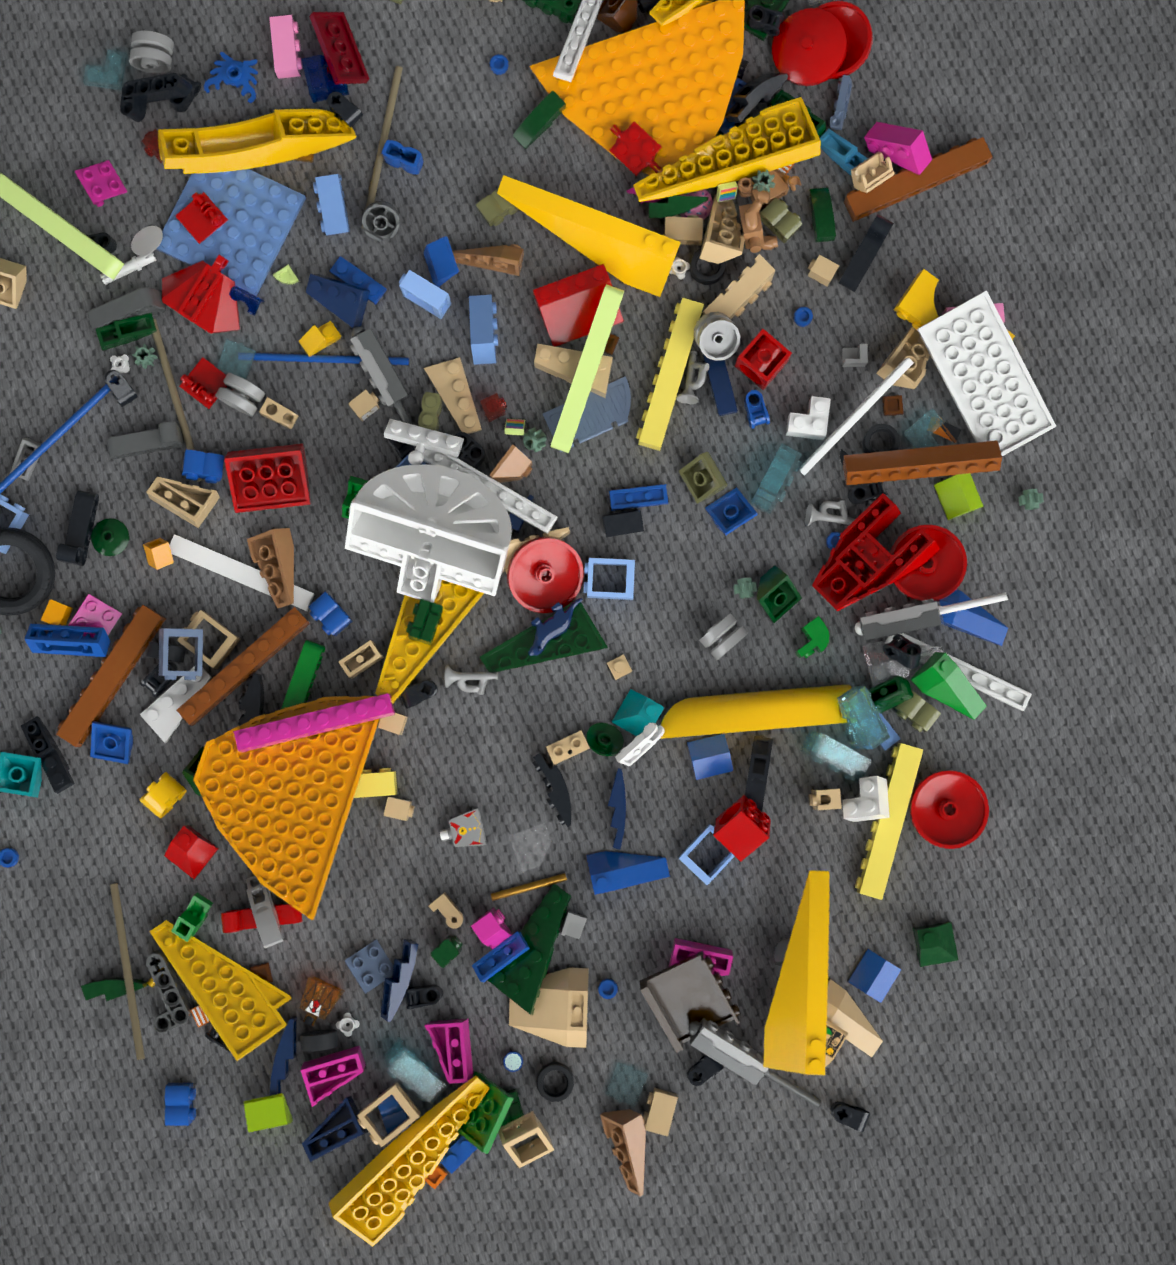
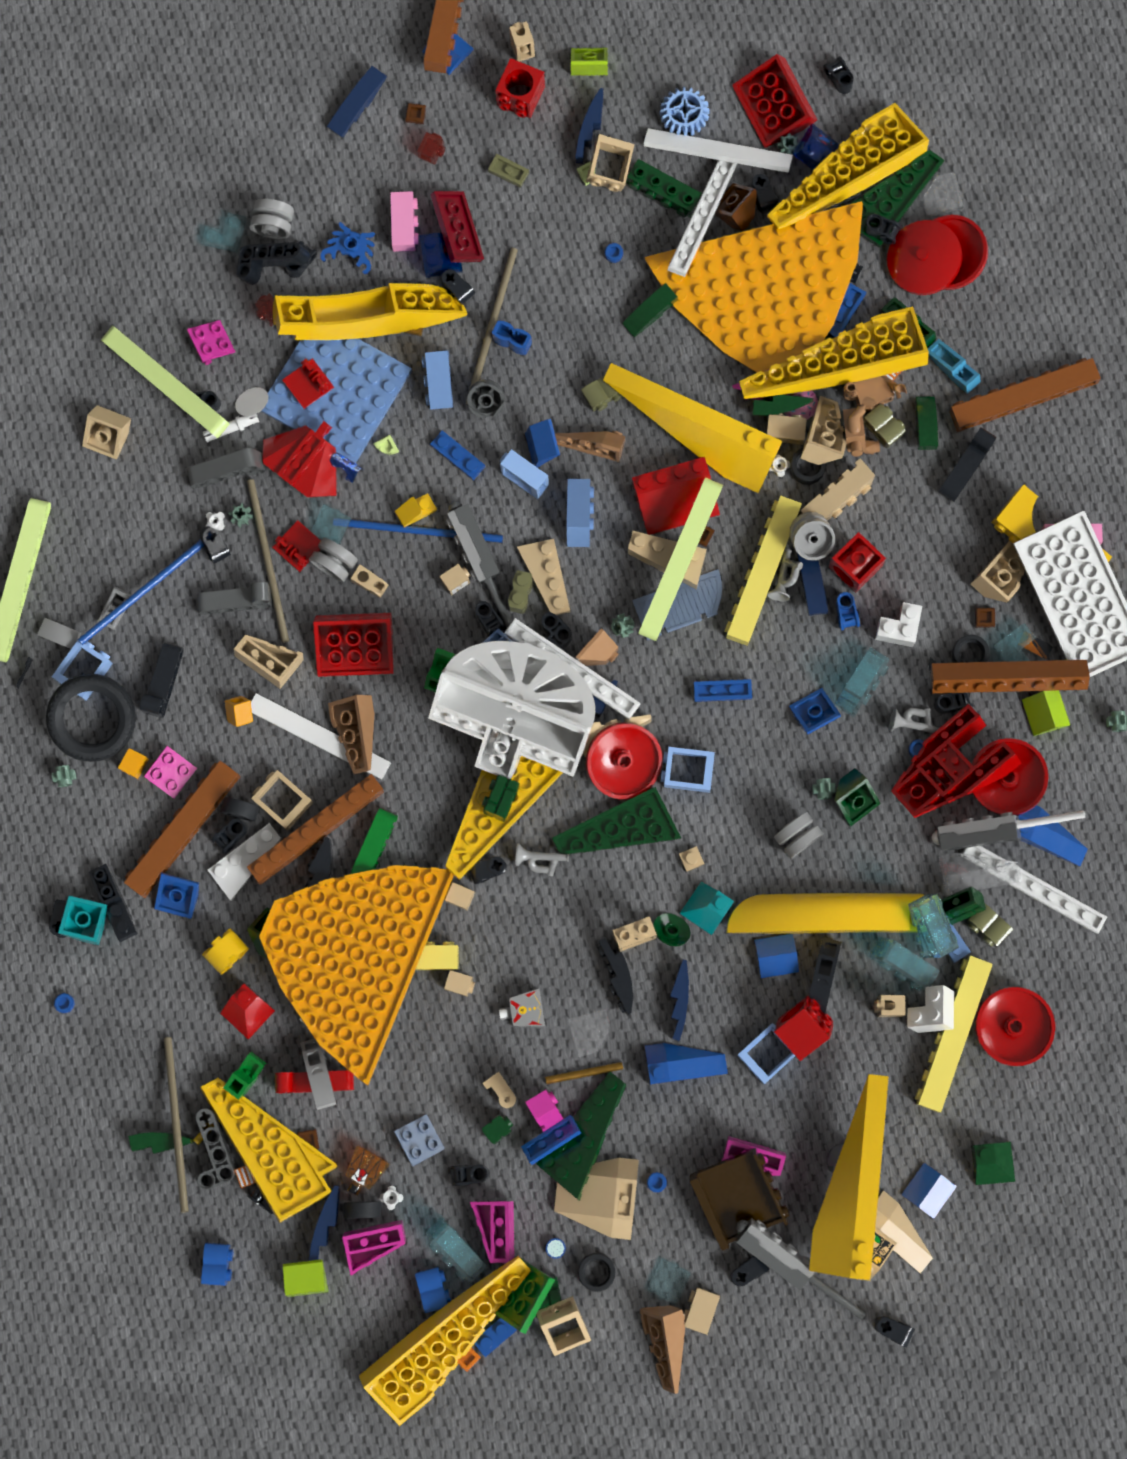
camera: 10 degrees right, 5 degrees down
(67, 640) = (143, 790): blue brick -> none
(118, 540) = (194, 700): dark green dish -> none
(126, 331) = (224, 489): dark green slope -> none
(164, 633) = (239, 811): sand blue window -> none
(202, 465) = (290, 627): blue brick -> none
(314, 723) = (384, 889): dark pink brick -> none
(330, 614) = (405, 784): blue brick -> none
(335, 1131) = (372, 1303): dark blue wedge -> none
(339, 297) = (439, 471): dark blue wedge -> none
(361, 659) = (433, 831): tan brick -> none
(397, 985) = (443, 1163): dark blue slope -> none
(404, 1101) = (445, 1278): tan window -> none
(422, 439) = (511, 617): white plate -> none
(493, 407) = (584, 590): clear red brick -> none
(514, 427) = (603, 611): tile -> none
(552, 627) = (627, 812): dark blue animal -> none
(574, 925) = (627, 1115): light grey panel -> none
(623, 523) = (705, 715): black hinge -> none
(635, 148) = (744, 345): red plate -> none
(640, 744) = (707, 937): white hinge -> none
(703, 477) = (789, 675): olive brick -> none
(726, 191) = (832, 394): tile -> none
(758, 90) = (868, 297): black slope -> none
(765, 177) = (871, 383): sand green gear -> none
(803, 316) = (900, 522): blue tile -> none
(817, 634) = (894, 844): green brick -> none
(822, 270) = (923, 478): tan brick -> none
(841, 105) = (952, 317): sand blue hinge -> none
(855, 356) = (950, 566): light grey panel -> none
(856, 415) = (945, 625): white tile -> none
(872, 172) = (978, 385): tan hinge -> none
(901, 144) = (1007, 361): dark pink wedge -> none
(903, 651) = (979, 862): black piece -> none
(947, 684) = (1022, 901): green wedge -> none

